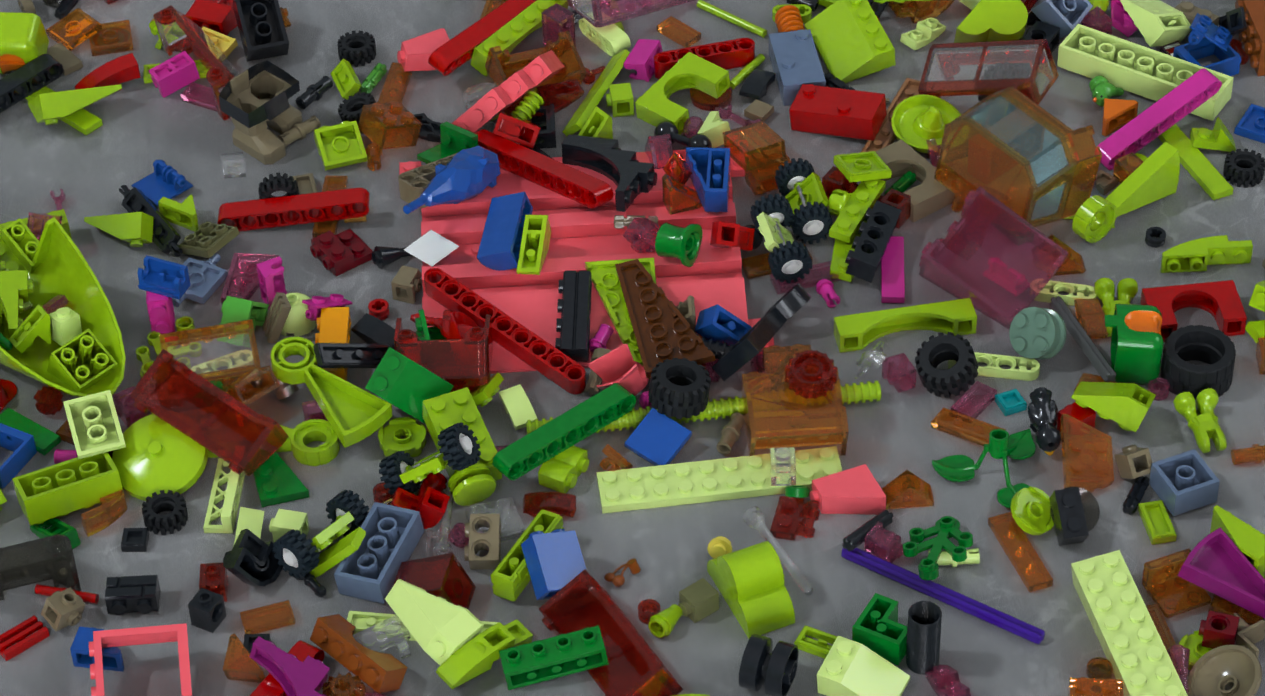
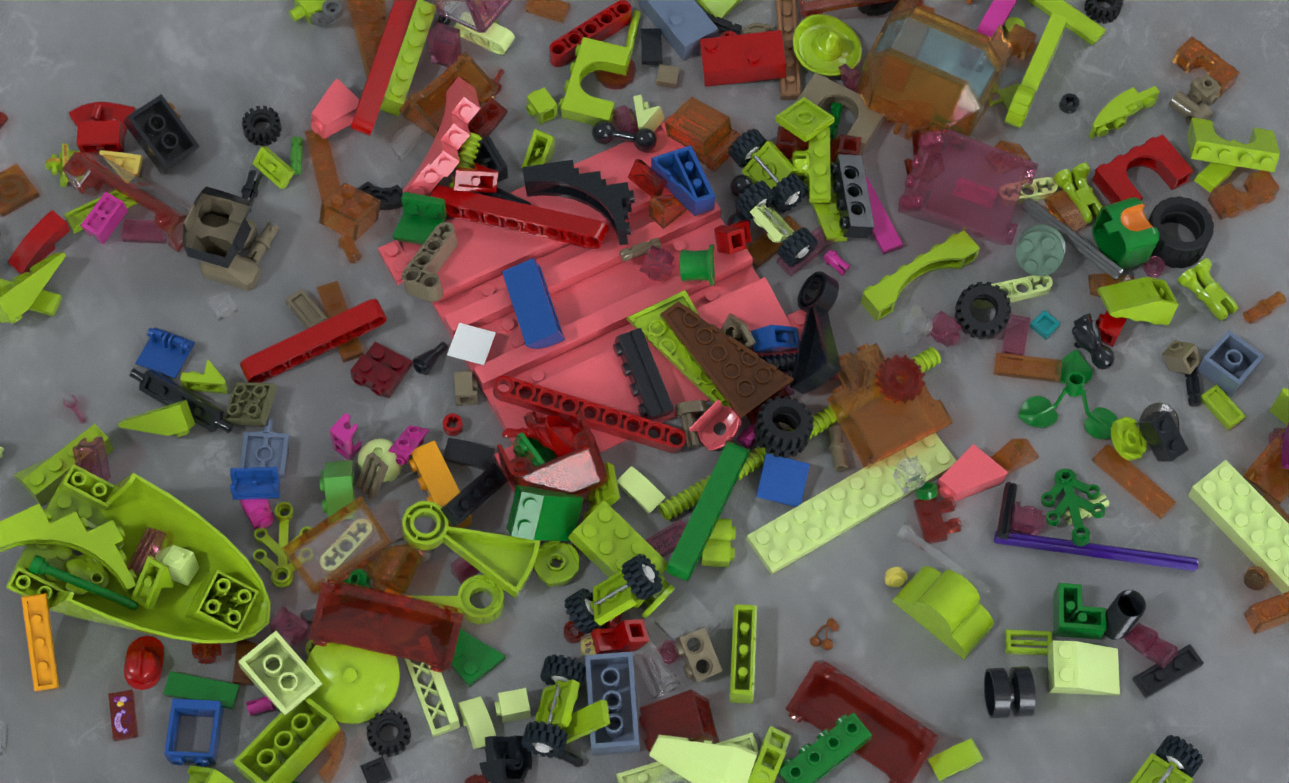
camera: 30 degrees left, 20 degrees up
(243, 276) = (309, 433): clear pink wing -> none
(278, 183) = (289, 325): black tyre -> none
(340, 145) = (312, 248): lime plate -> none
(352, 107) = (298, 197): black tyre -> none
(459, 179) = (462, 261): blue piece -> none
(534, 244) = (569, 313): lime slope -> none
(552, 560) = (778, 659): brick -> none
(555, 502) = (725, 586): clear red slope -> none
(596, 93) = (514, 104): lime tile -> none
(601, 337) = (675, 388): dark pink pin -> none
(614, 459) = (758, 515): clear orange tile -> none
(642, 59) = (536, 51): dark pink hinge -> none
(649, 606) = (874, 673): clear red bush -> none
(659, 150) = (612, 158): clear pink slope -> none
(664, 621) = (891, 674): lime cone -> none
(699, 600) = (908, 641): olive brick -> none
(727, 113) = (642, 88): clear pink piece -> none
(1085, 455) = (1140, 366): clear orange wing -> none

